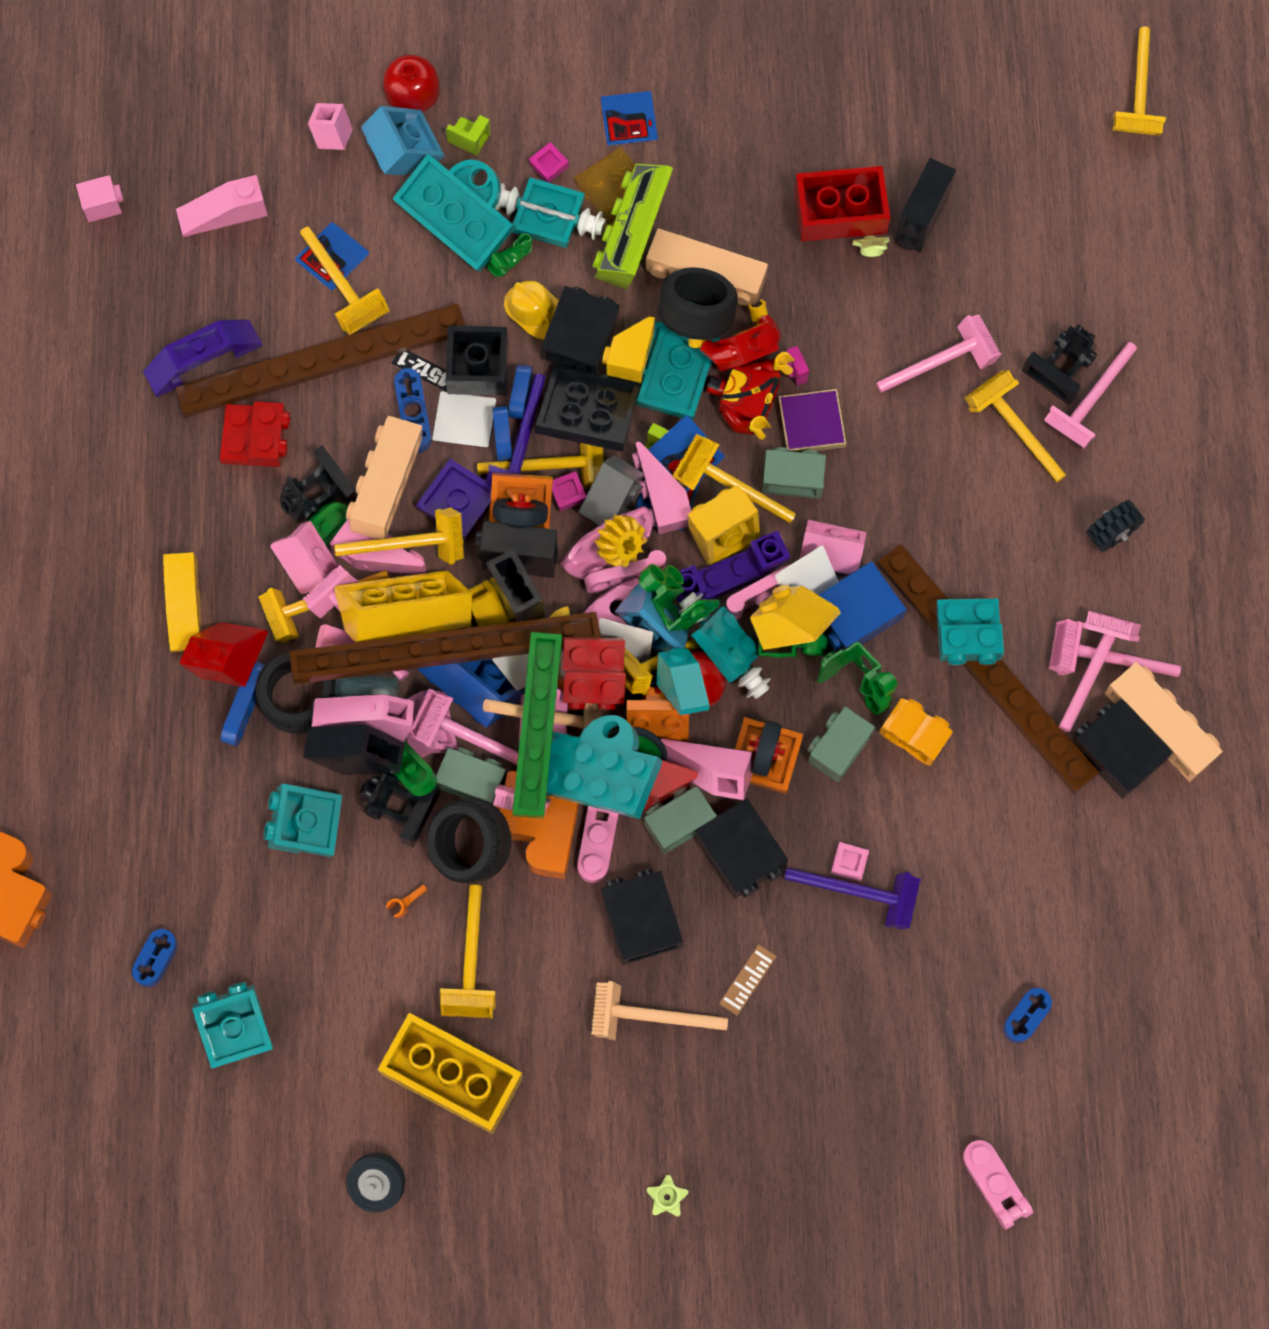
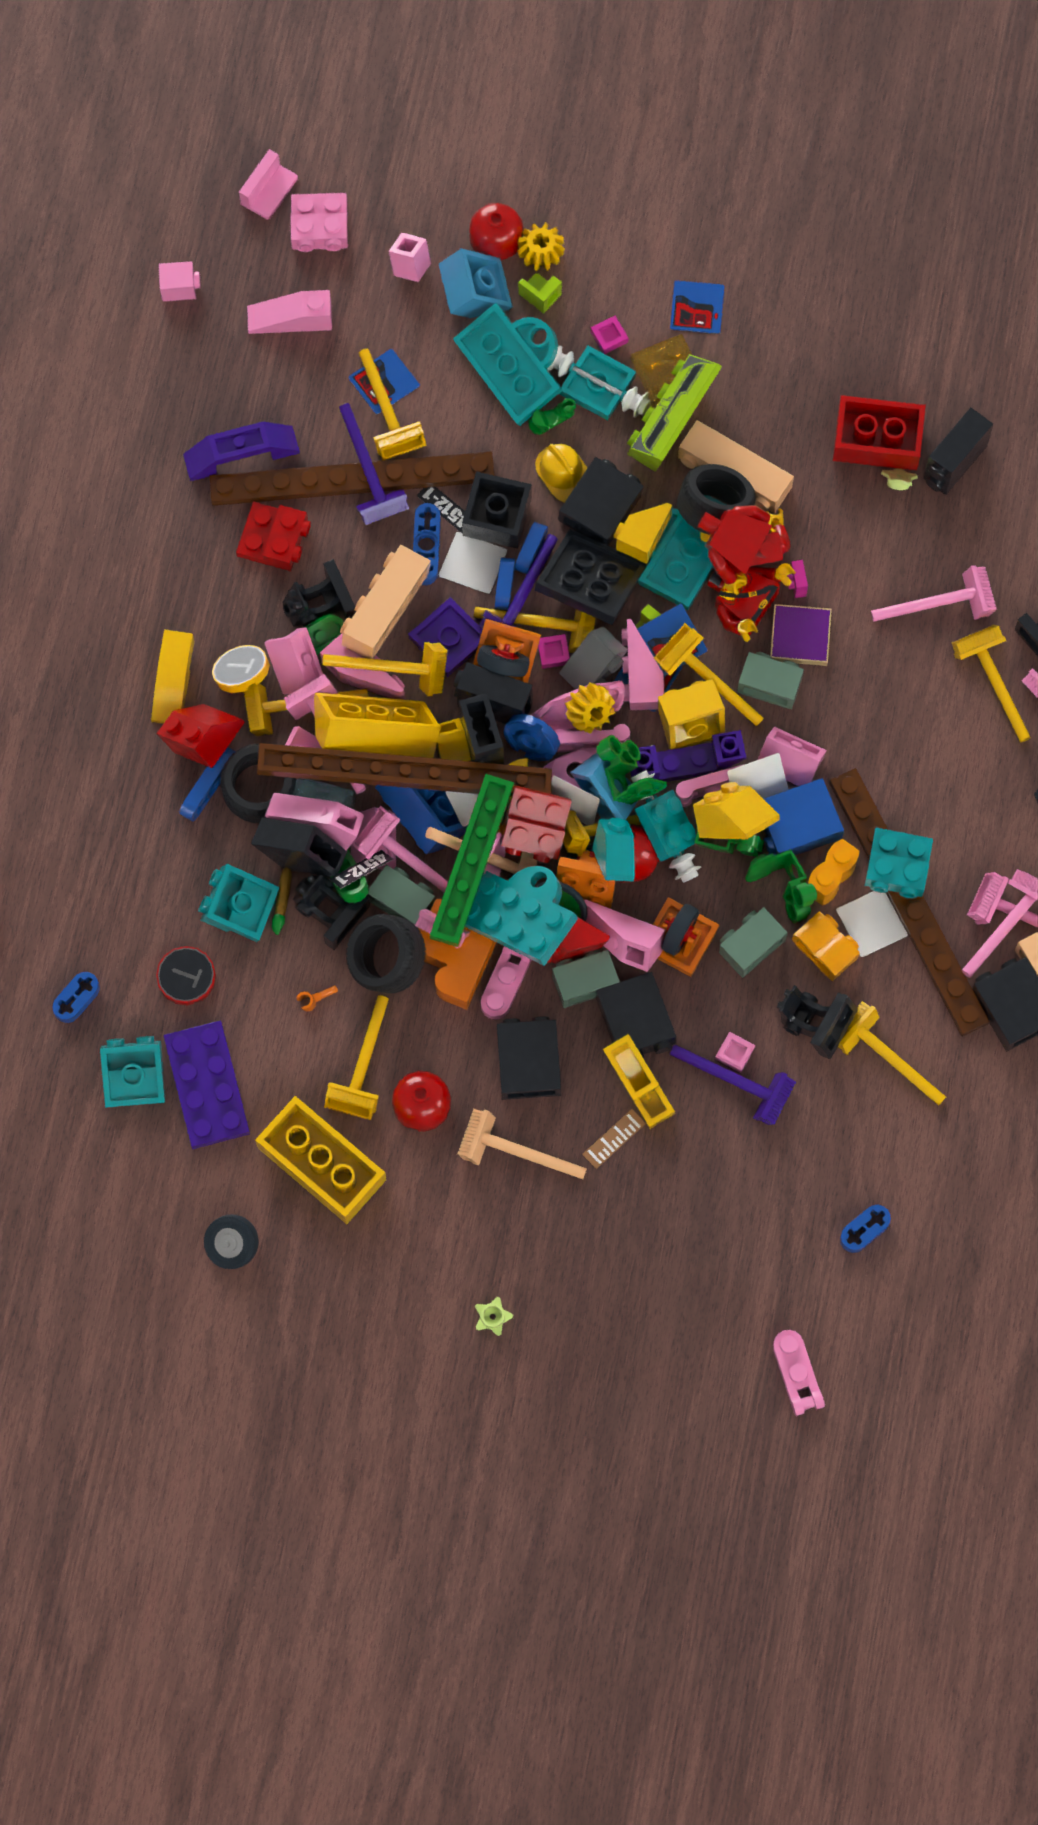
camera: 15 degrees right, 0 degrees up
(169, 86) = (267, 186): none -> bright pink panel
(230, 110) = (319, 221): none -> bright pink plate
(251, 577) = (240, 668): none -> tile
(265, 909) = (186, 975): none -> black tile
(312, 1019) = (206, 1084): none -> dark purple plate
(347, 803) = (282, 900): none -> pearl gold piece
(359, 379) = (383, 504): none -> dark purple piece
(423, 758) = (361, 869): none -> black sticker
(459, 89) = (531, 249): none -> yellow gear
(540, 986) = (421, 1101): none -> red cylinder
(567, 583) = (531, 736): none -> blue tile
(729, 339) = (736, 541): none -> red torso
(761, 915) = (639, 1081): none -> yellow slope
(905, 804) = (799, 1010): none -> black tile
(906, 651) = (837, 868): none -> light orange brick
(954, 696) = (872, 922): none -> white sticker
(968, 809) = (859, 1030): none -> yellow piece

